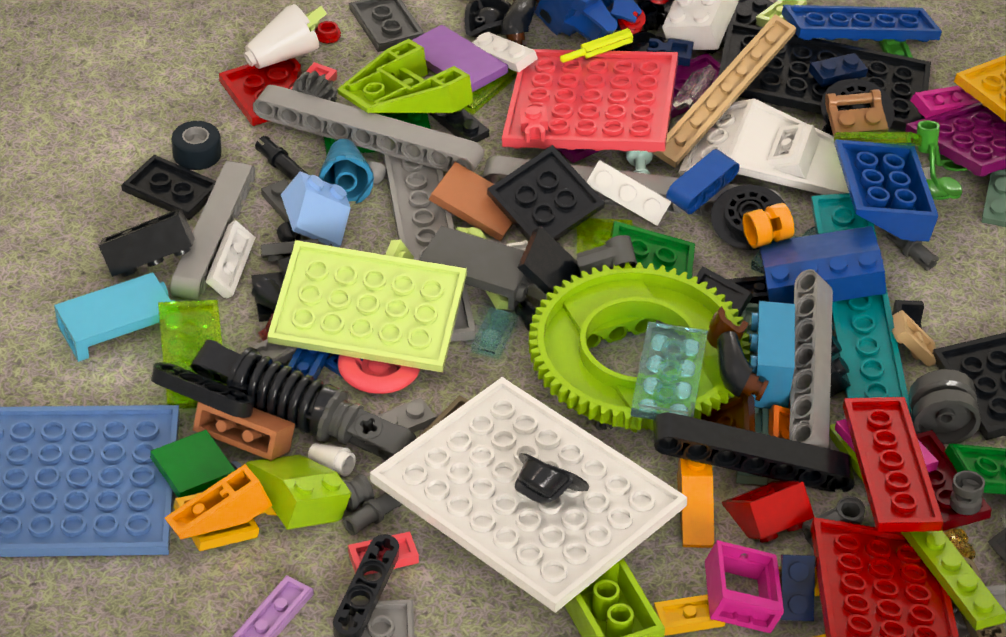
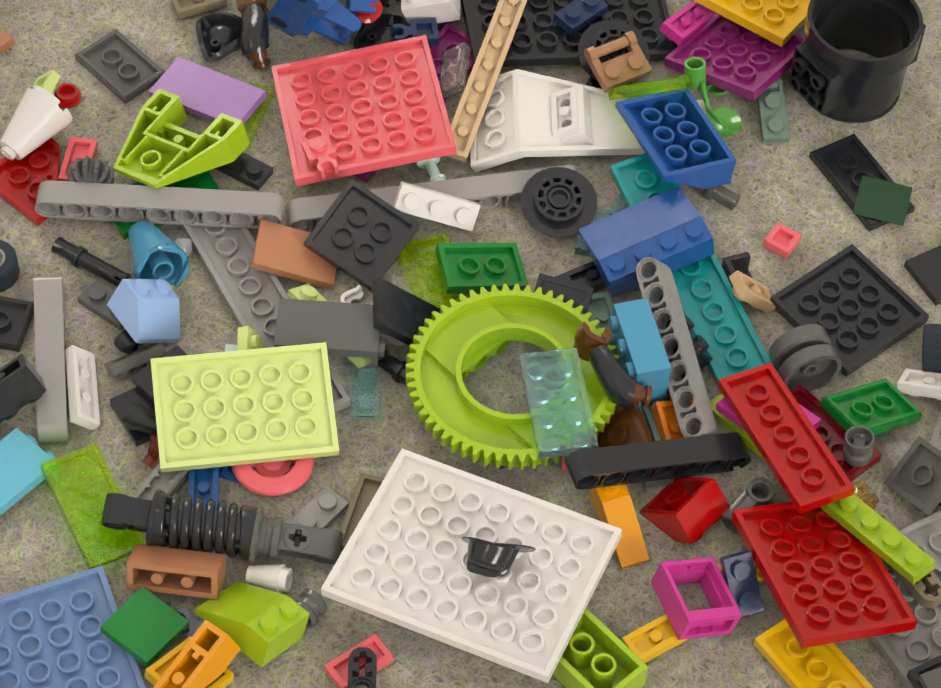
camera: 20 degrees left, 10 degrees up
(203, 389) = (125, 547): black beam -> none
(371, 512) = (330, 622): dark grey pin -> none
(509, 52) = (255, 73): white plate -> none
(600, 45) = (349, 46): neon yellow axle -> none
(615, 252) = (454, 284): dark grey piece -> none
(702, 181) = (504, 177): blue beam -> none
(768, 225) = (584, 212): light orange wheel -> none
(966, 306) = (782, 240): none -> coral plate

